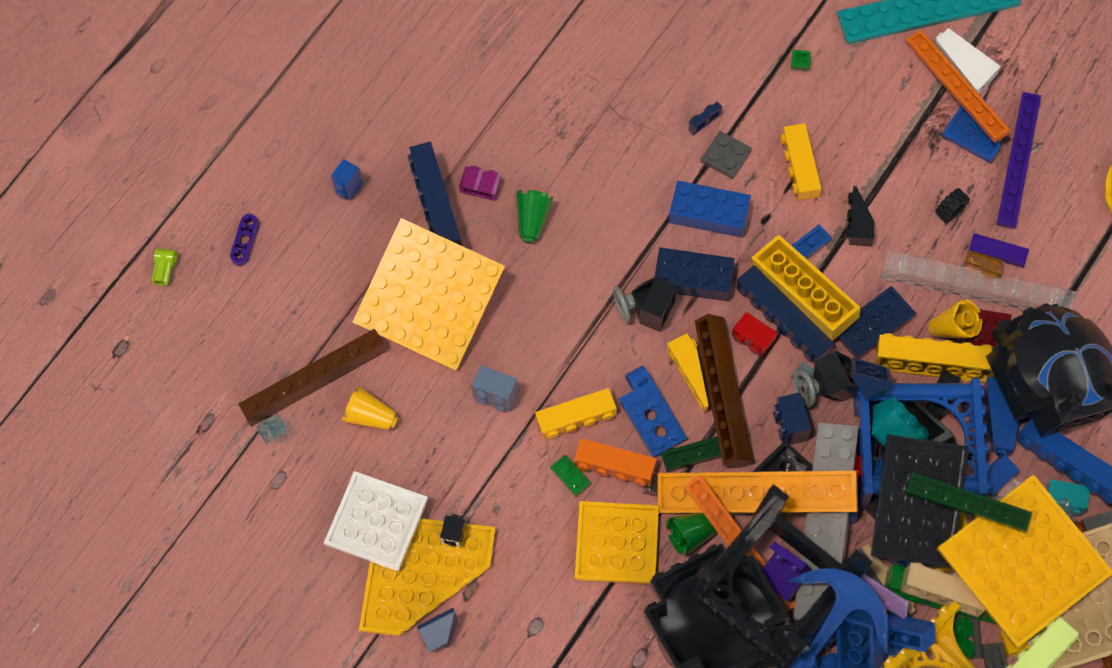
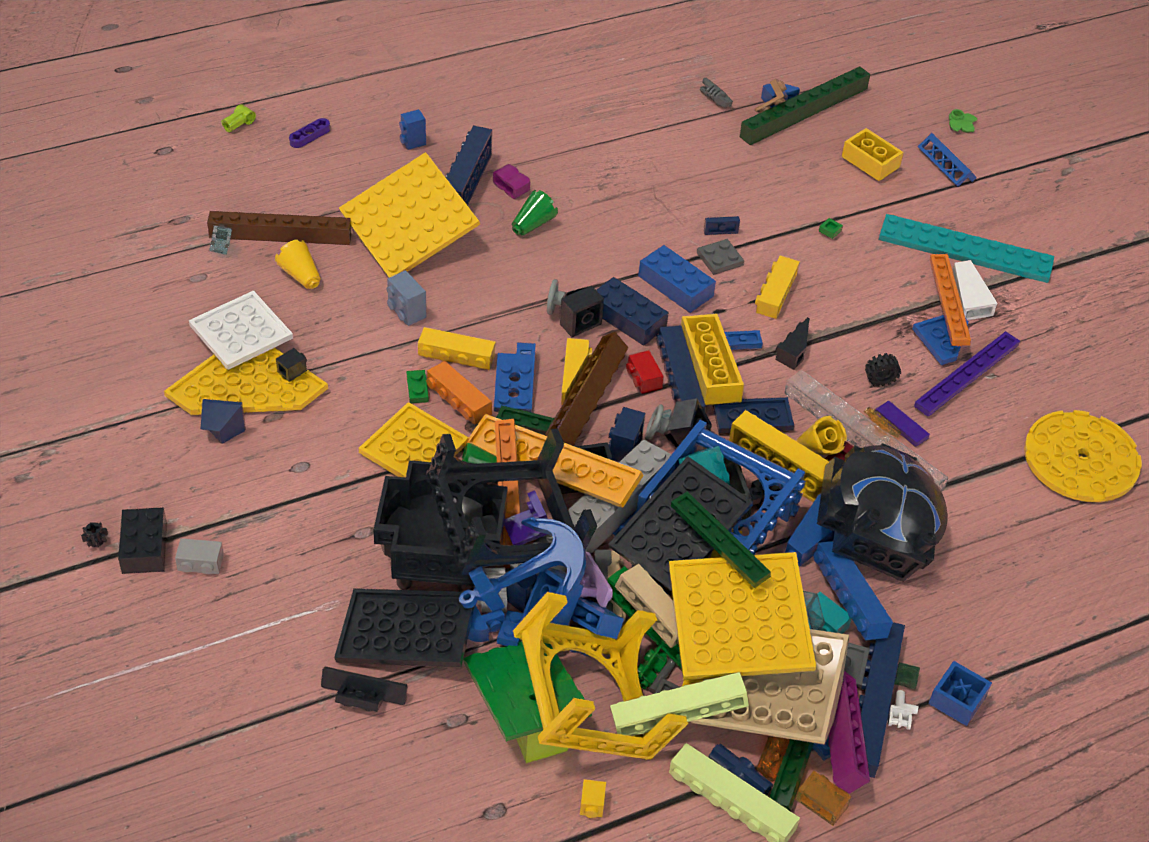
camera: 25 degrees right, 20 degrees down
(870, 377) = (706, 419): dark blue slope -> none

